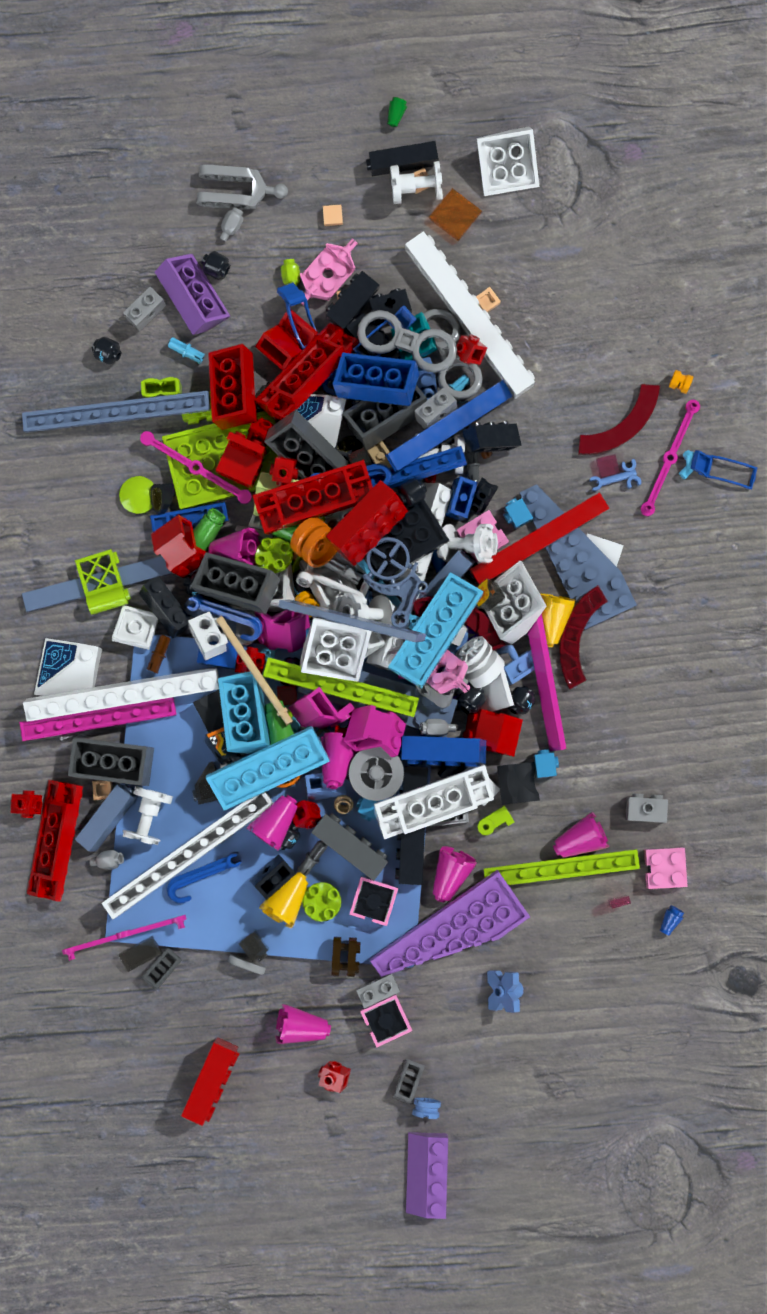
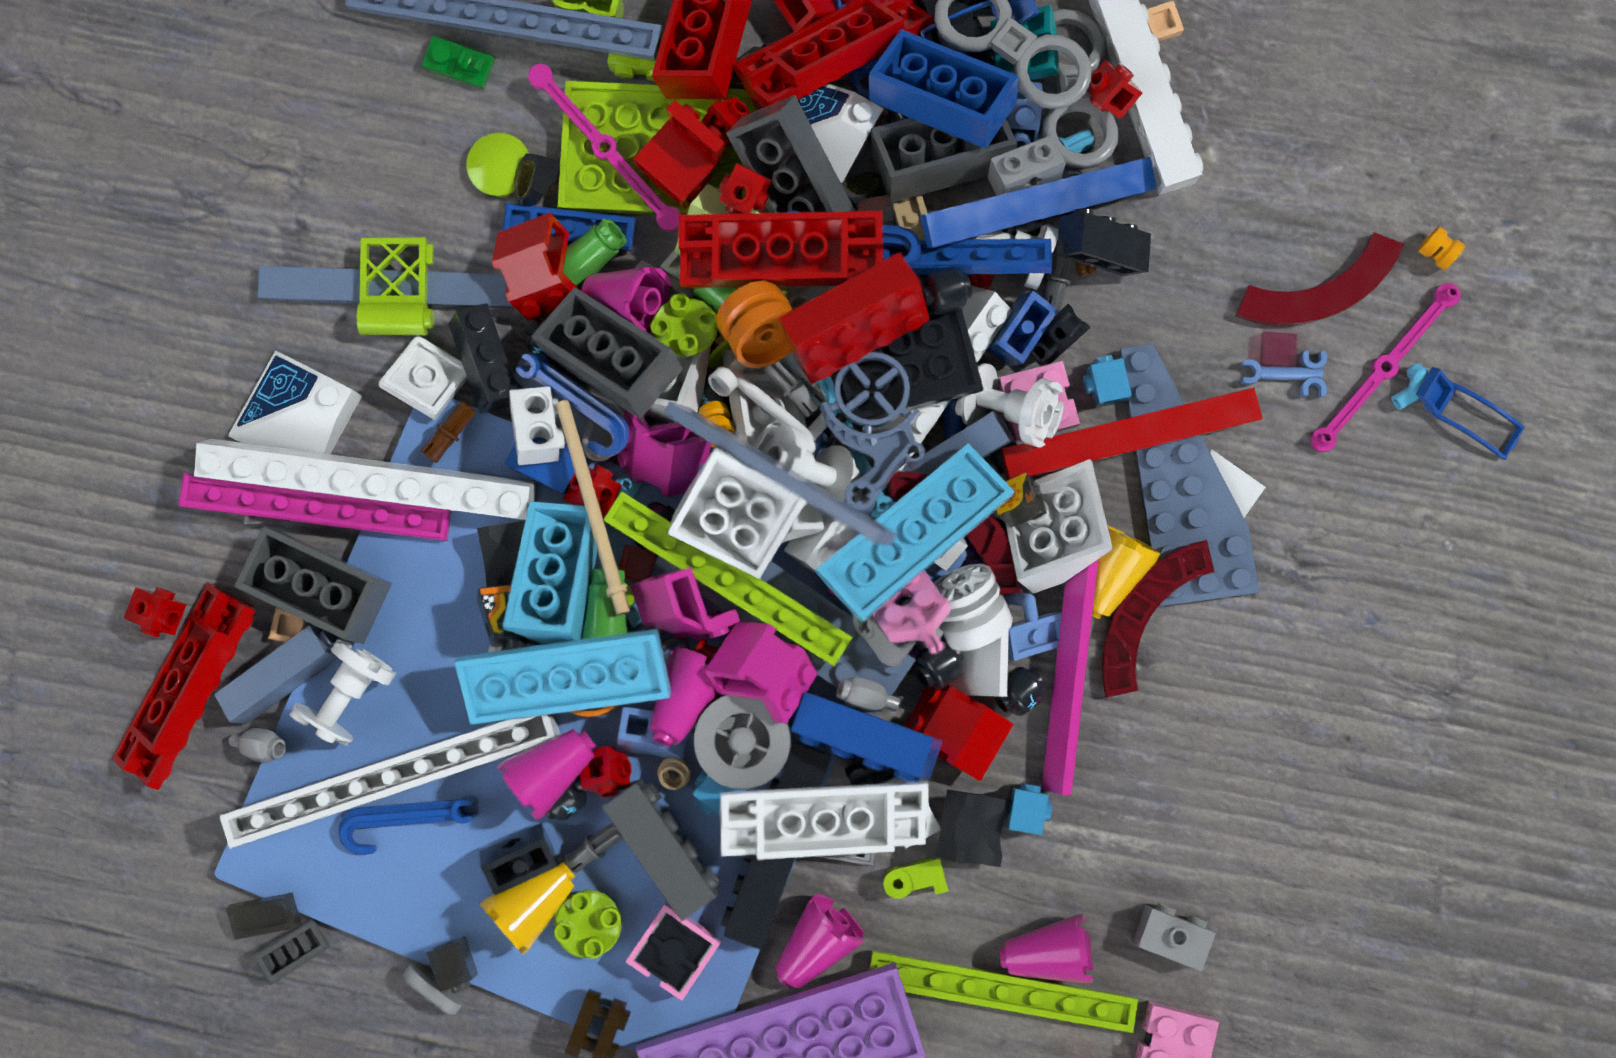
camera: 15 degrees right, 0 degrees up
(71, 950) = (340, 882): dark pink piece -> none
(97, 444) = (458, 62): none -> green plate
(203, 792) = (445, 681): clear smoke slope -> none

